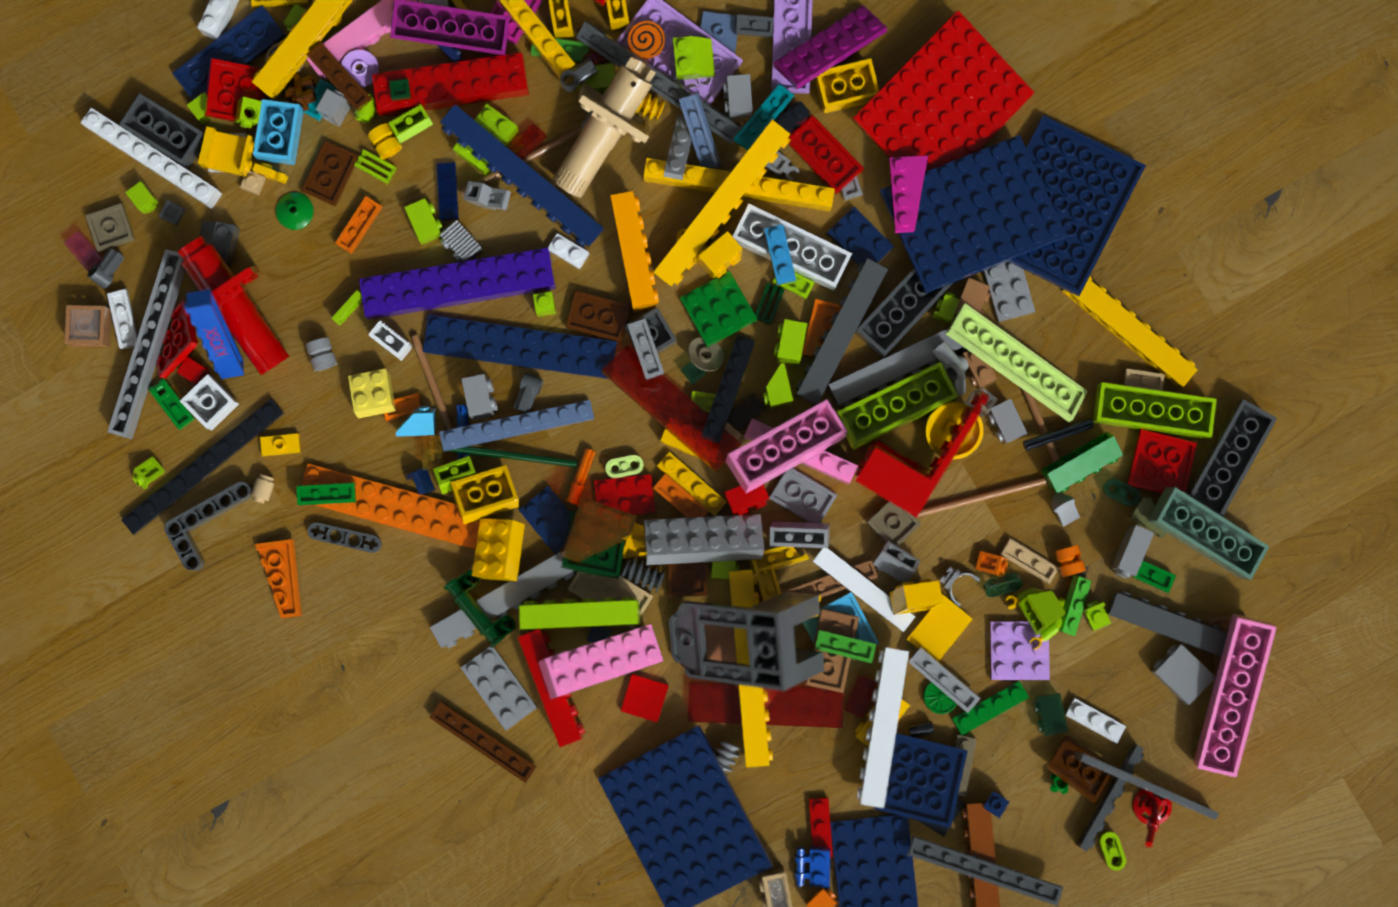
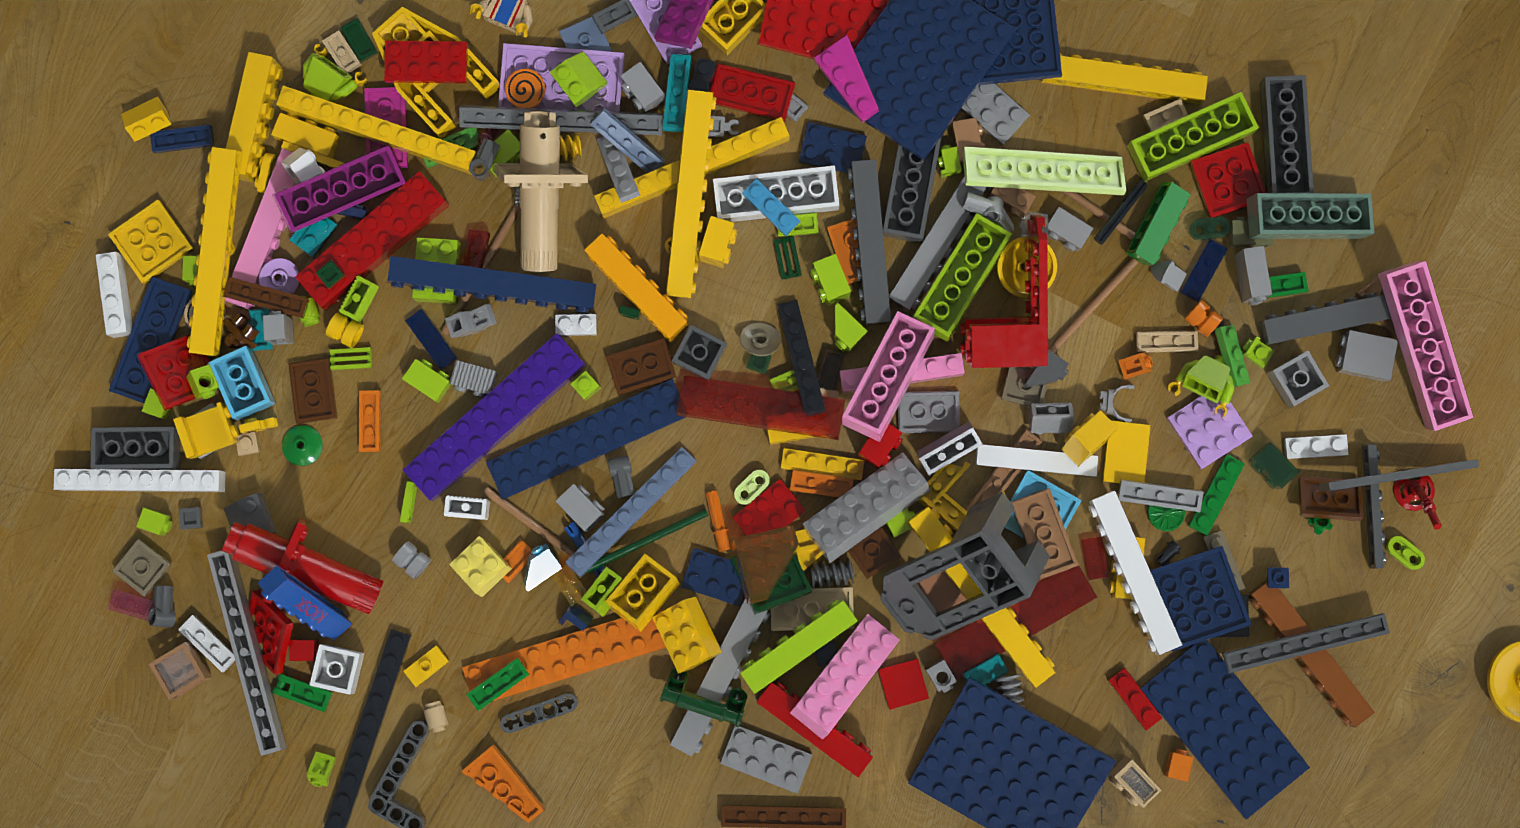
camera: 30 degrees left, 0 degrees up
(408, 52) = (314, 236): none -> teal plate
(616, 268) = (629, 312): none -> dark green tile
(645, 349) = (705, 368): light grey plate -> none
(681, 702) = (932, 672): none -> light grey brick
(717, 730) = (988, 670): none -> teal plate
(718, 309) = (745, 291): green plate -> none
(819, 867) = (1156, 733): blue plate -> none
(845, 646) = (1054, 522): bright green plate -> none
(922, 525) = (1048, 374): none -> dark grey slope
(1003, 585) = (1157, 378): clear green plate -> none
(1095, 523) = (1203, 270): none -> clear blue tile
(1114, 657) = (1298, 379): none -> light grey brick

